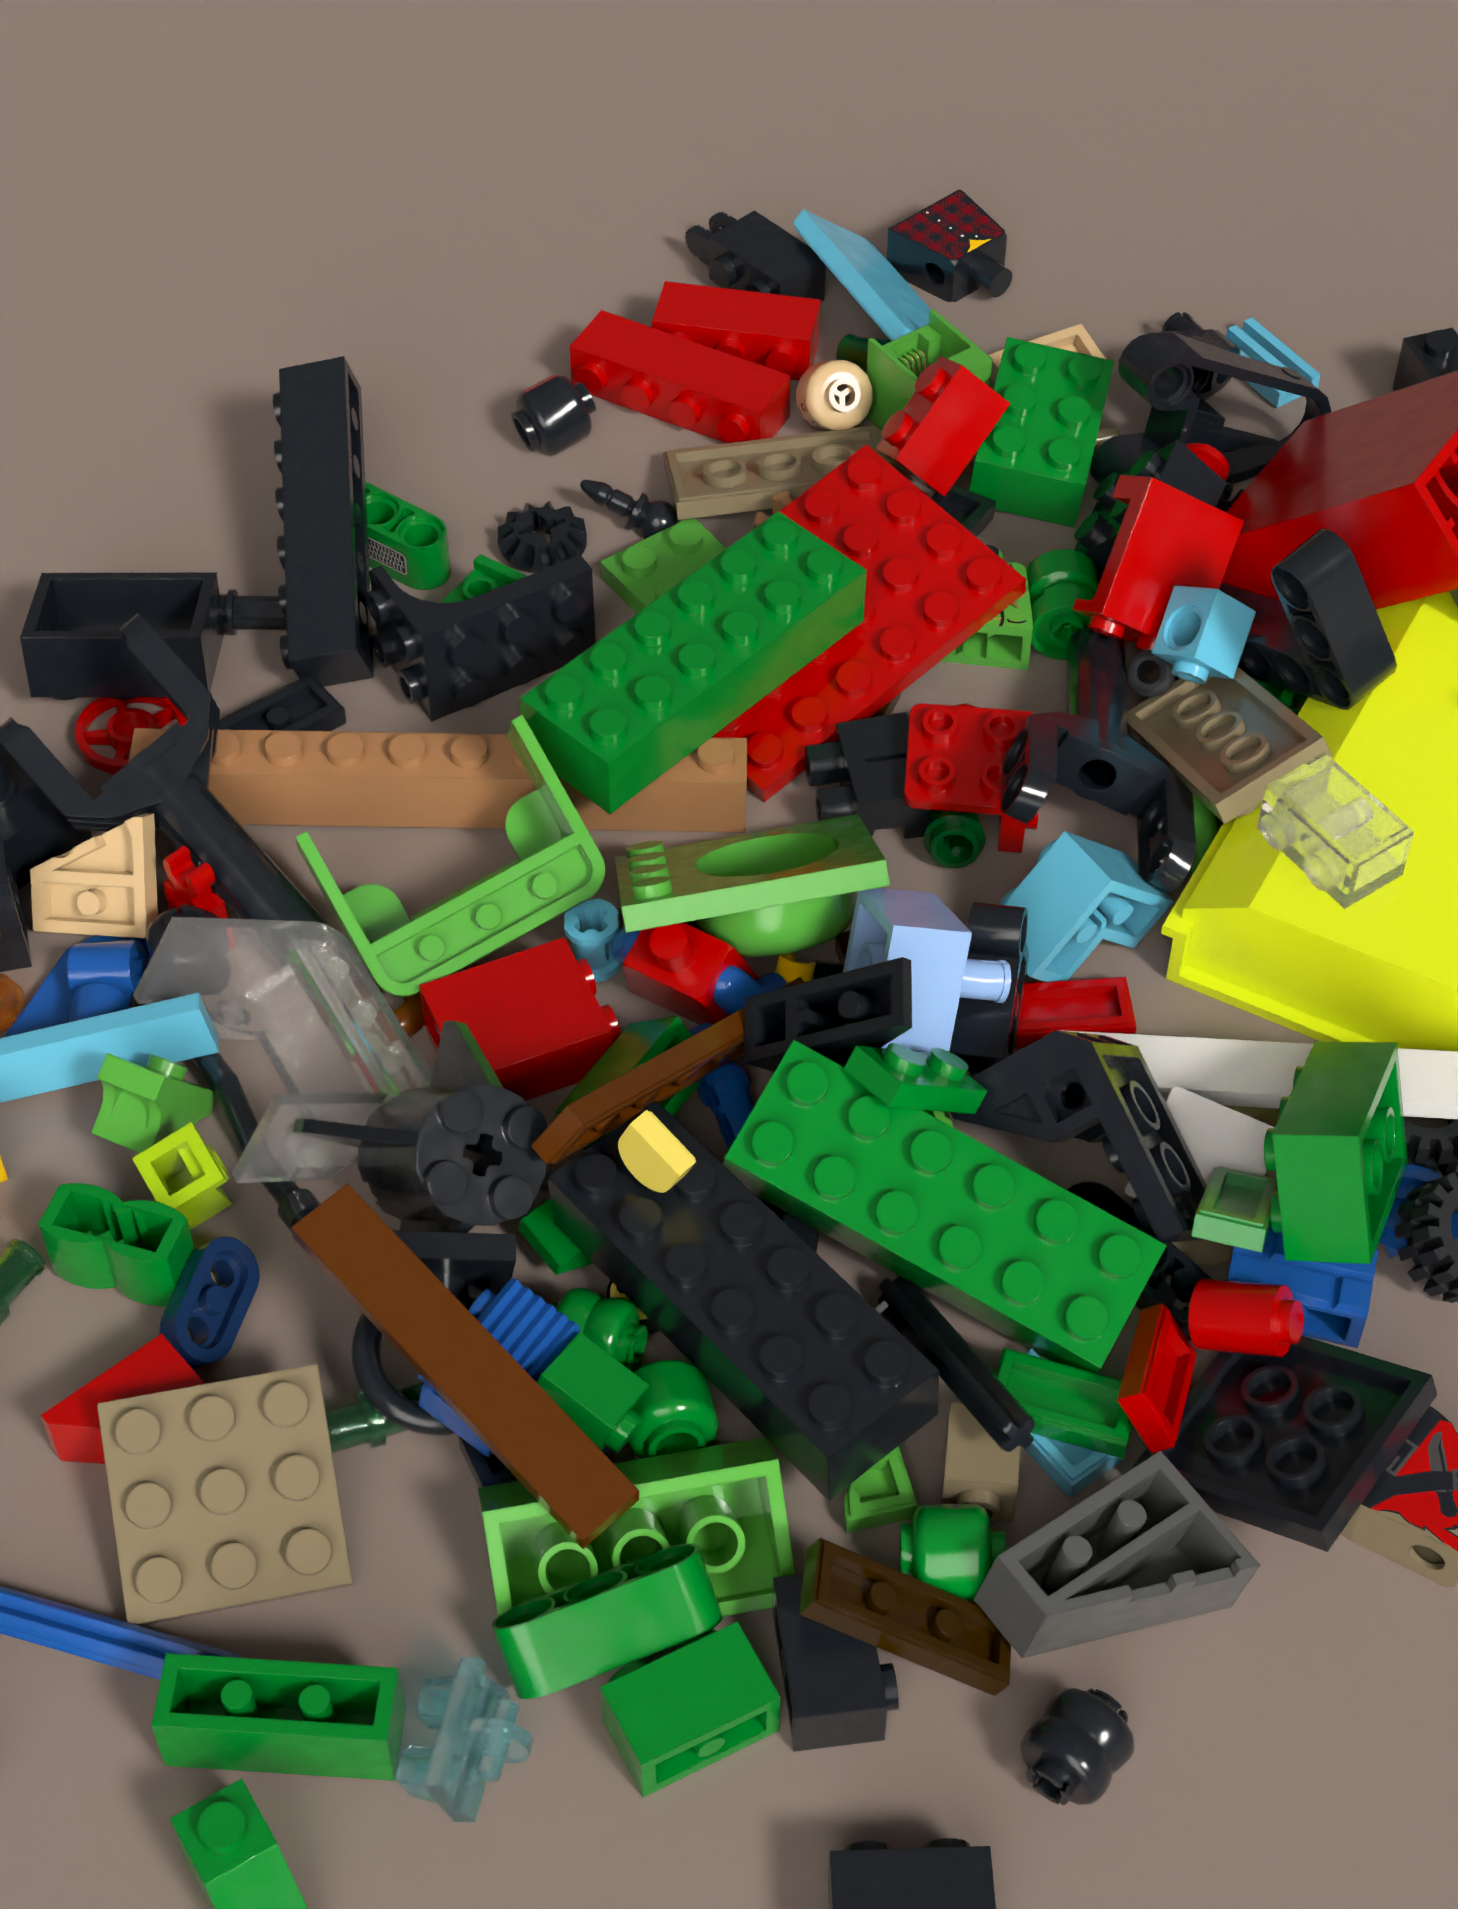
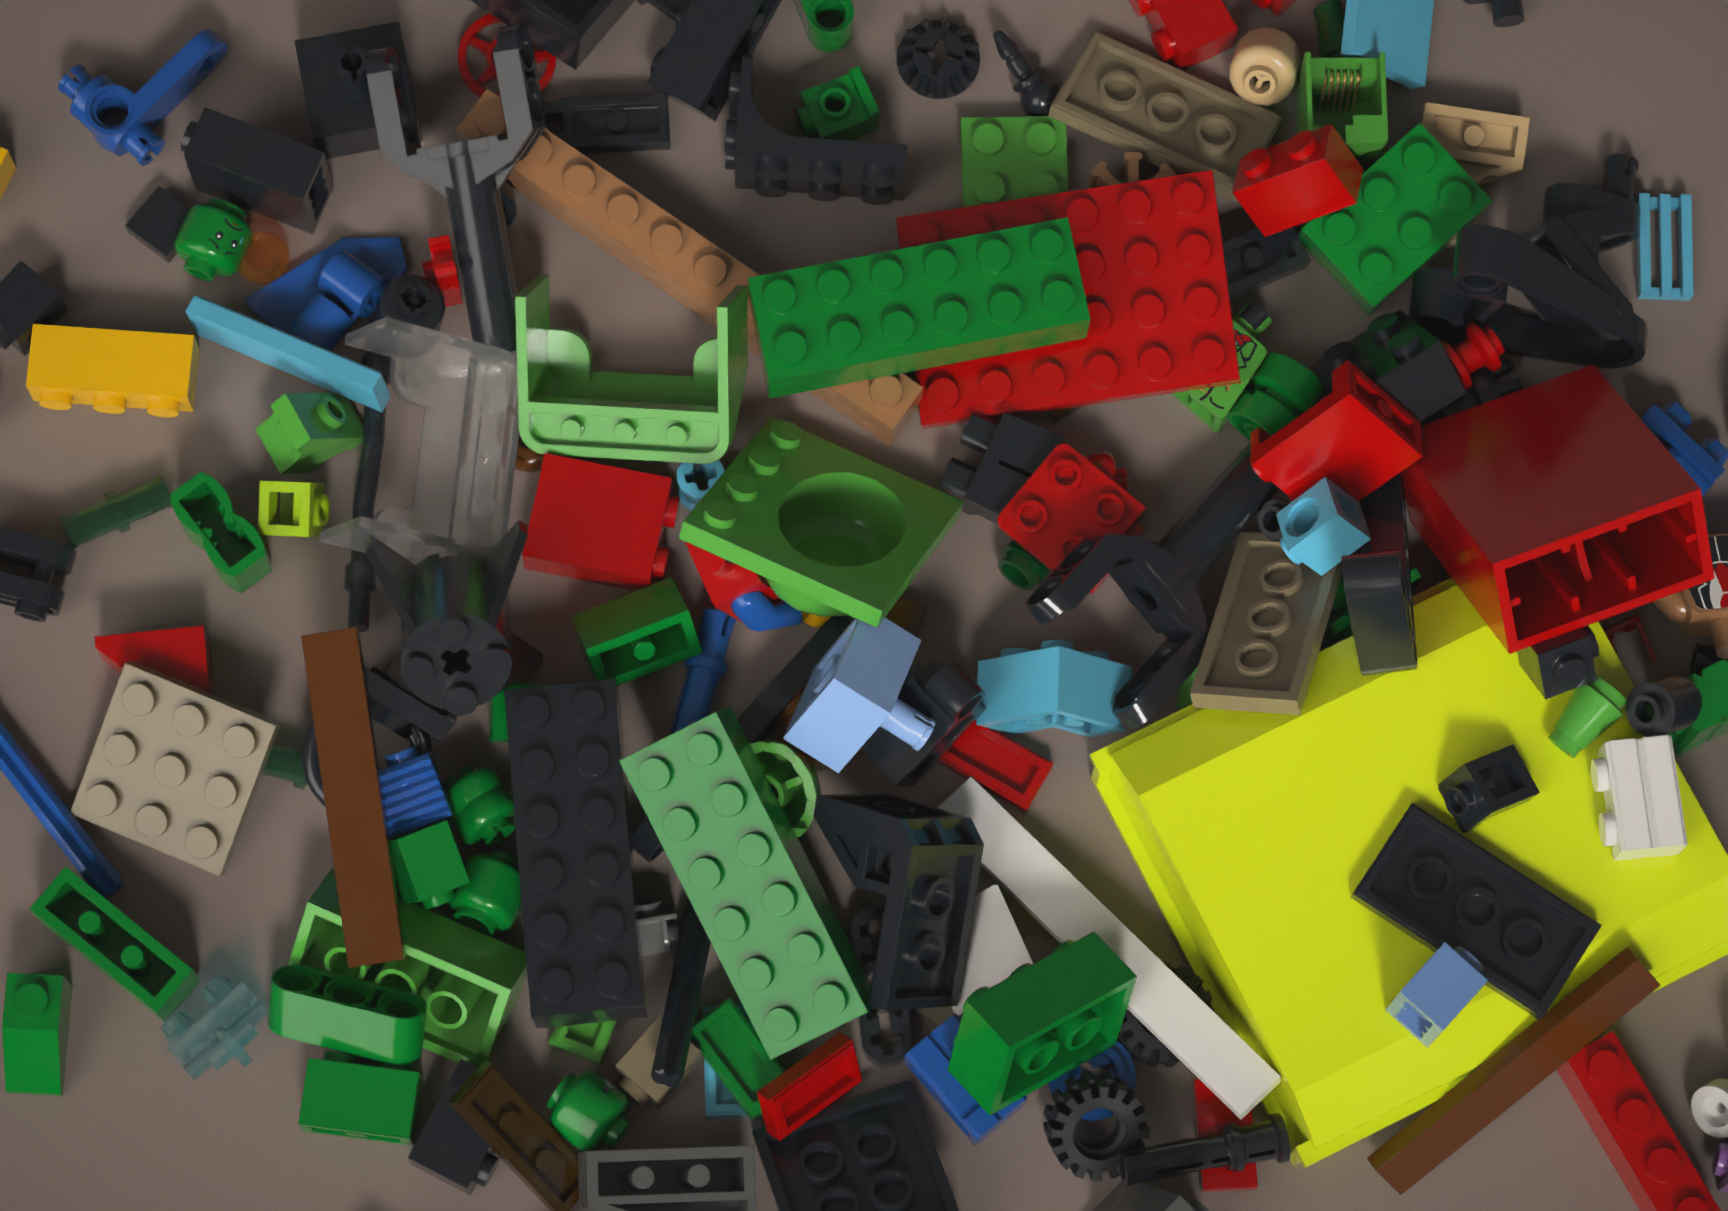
camera: 30 degrees right, 25 degrees up
(100, 884) = (385, 213): tan wing -> none
(207, 1308) = (256, 612): dark blue plate -> none
(649, 1082) = (646, 663): reddish brown tile -> none
(654, 1153) = (567, 737): light yellow tile -> none
(830, 1014) = (762, 698): black slope -> none
(916, 1078) = (784, 788): green plate -> none
(1235, 1209) = (935, 1015): green tile -> none
(1244, 1317) = (893, 1087): red brick -> none
(1334, 830) = (1237, 782): clear brick -> none

